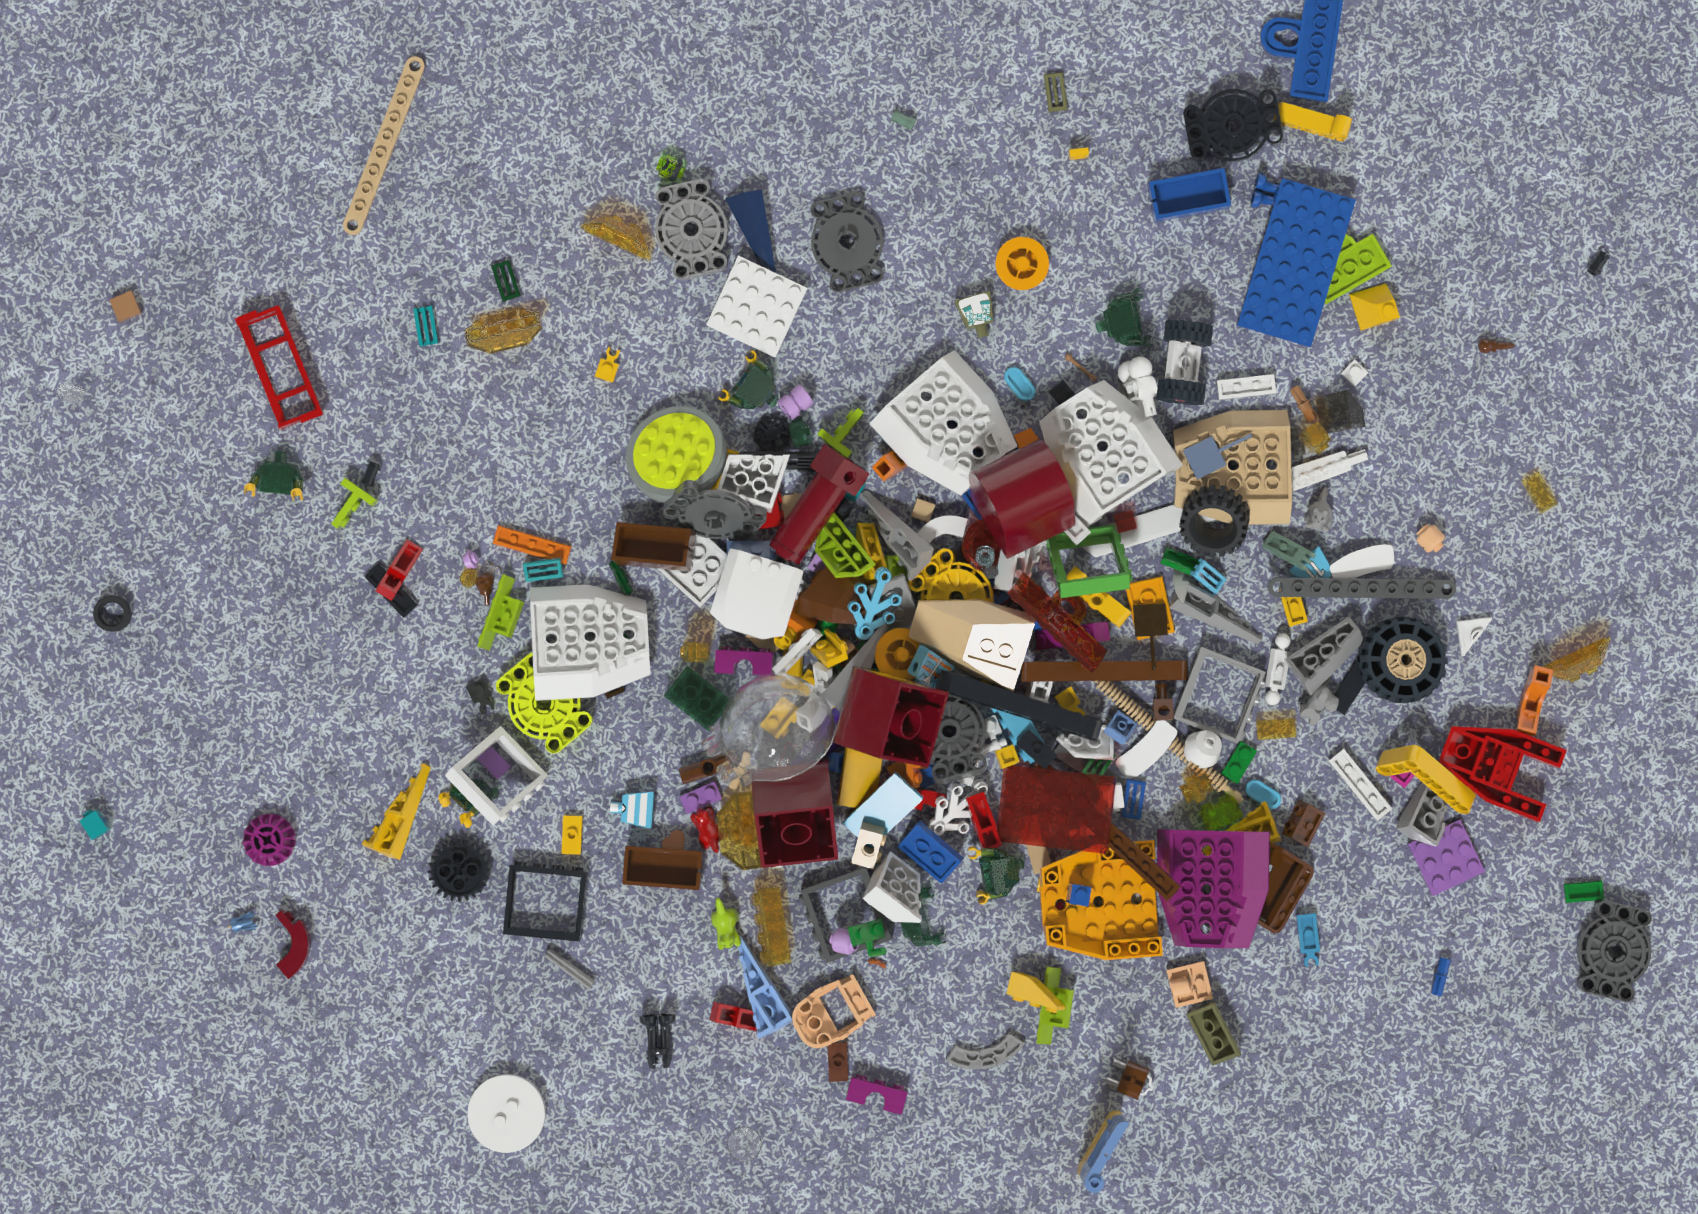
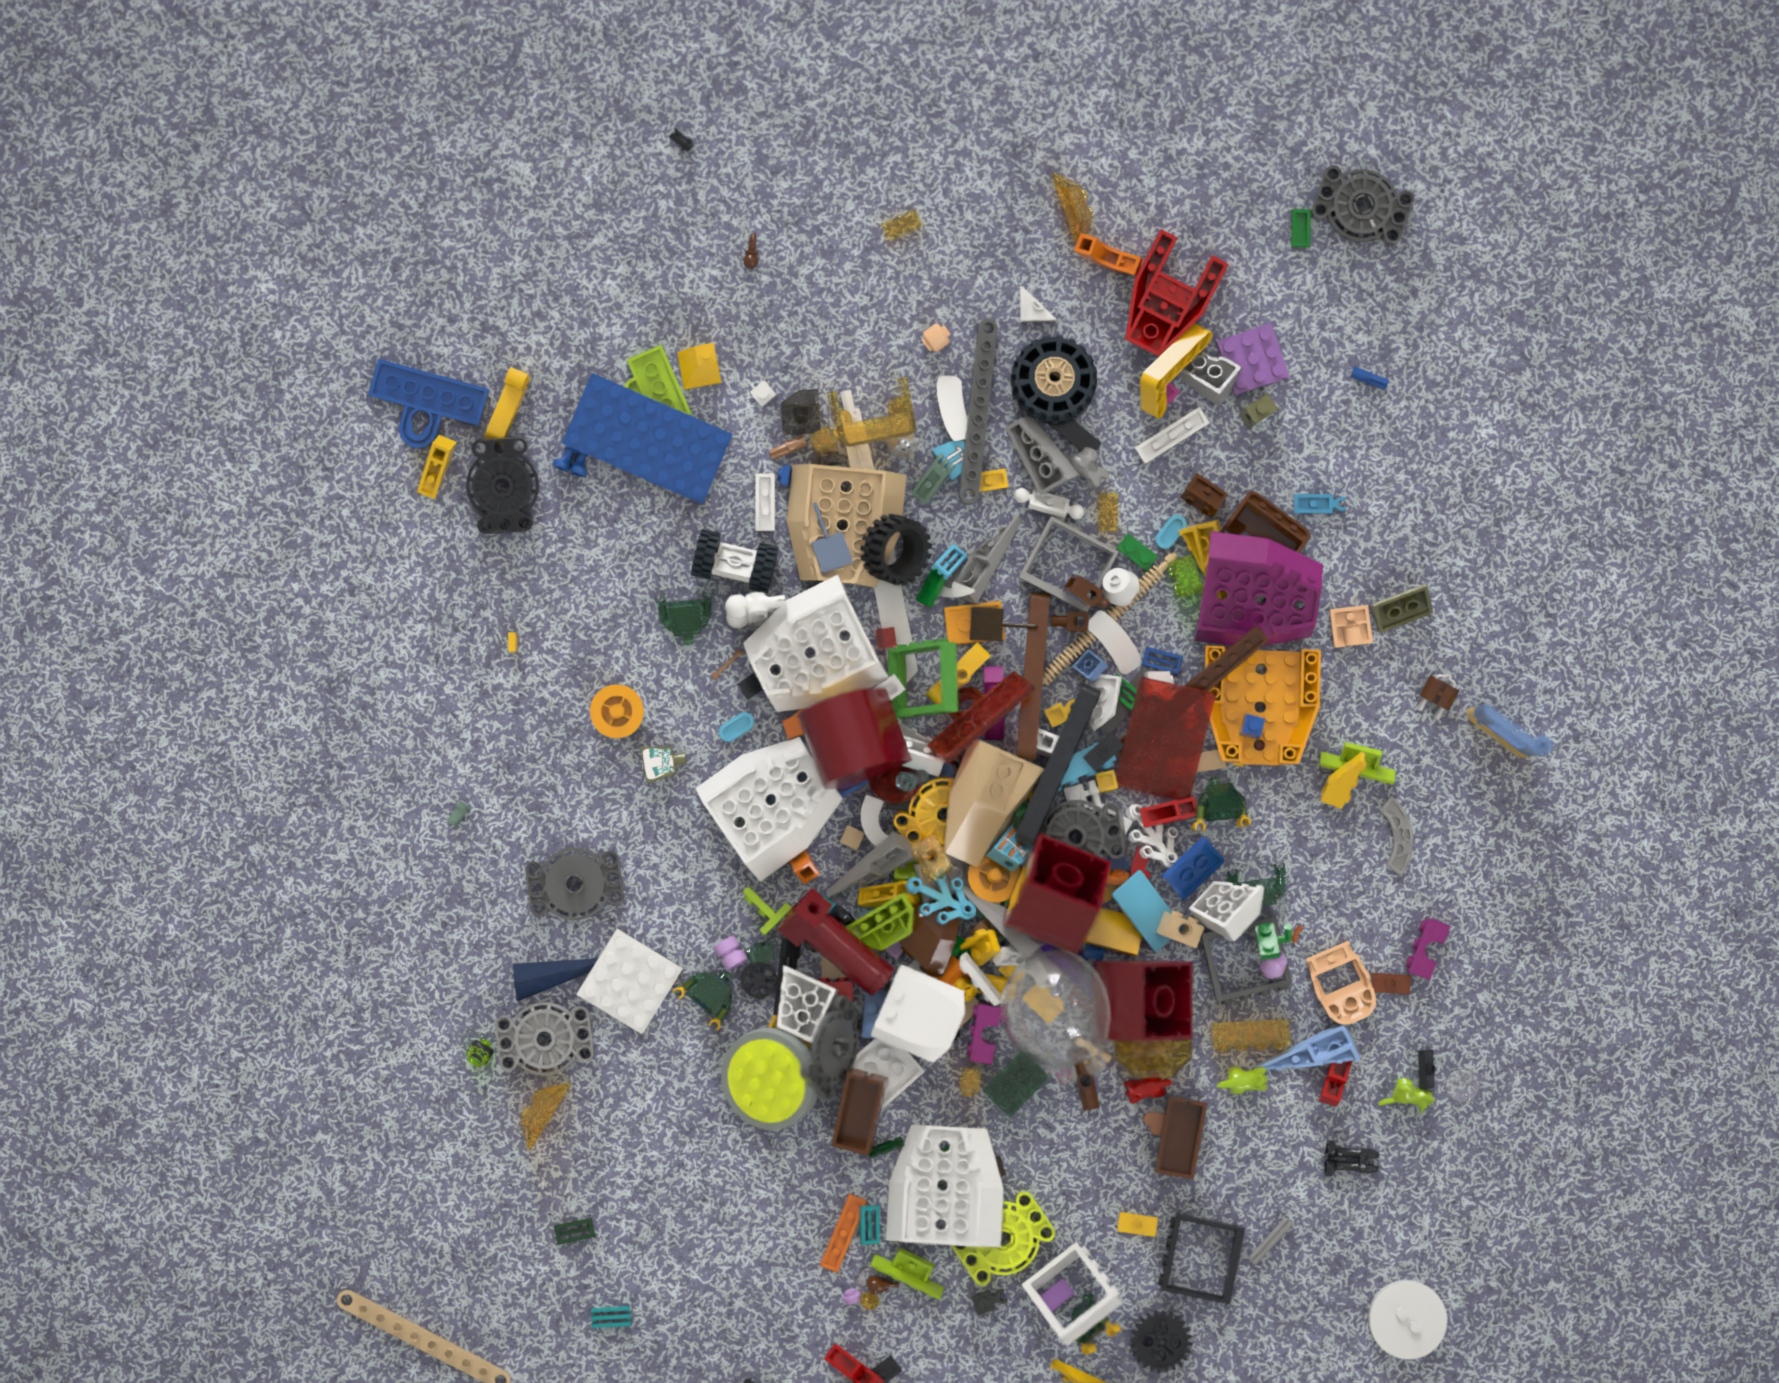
camera: 85 degrees left, 0 degrees up
(503, 330) = (624, 1239): clear yellow wedge -> none
(607, 368) = (674, 1138): yellow plate -> none
(635, 809) = (1119, 1157): torso -> none
(700, 797) = (1114, 1091): medium lavender plate -> none
(730, 1089) = (1407, 1094): none -> lime animal
(756, 1106) = (1426, 1069): none -> black plate
(922, 588) = (931, 847): none -> clear yellow brick
(964, 672) = (1019, 815): none -> dark green tile
(1055, 109) = (464, 658): olive tile -> none
(1189, 195) = (567, 537): blue piece -> none
(1193, 790) = (1158, 597): clear yellow brick -> none
(1197, 706) = (1078, 589): none -> reddish brown torso
(1244, 58) = (436, 466): none -> yellow slope
(1275, 403) = (784, 475): none -> blue plate
(1339, 508) = (897, 424): none -> clear yellow windscreen
(1394, 868) = (1258, 411): none -> olive torso

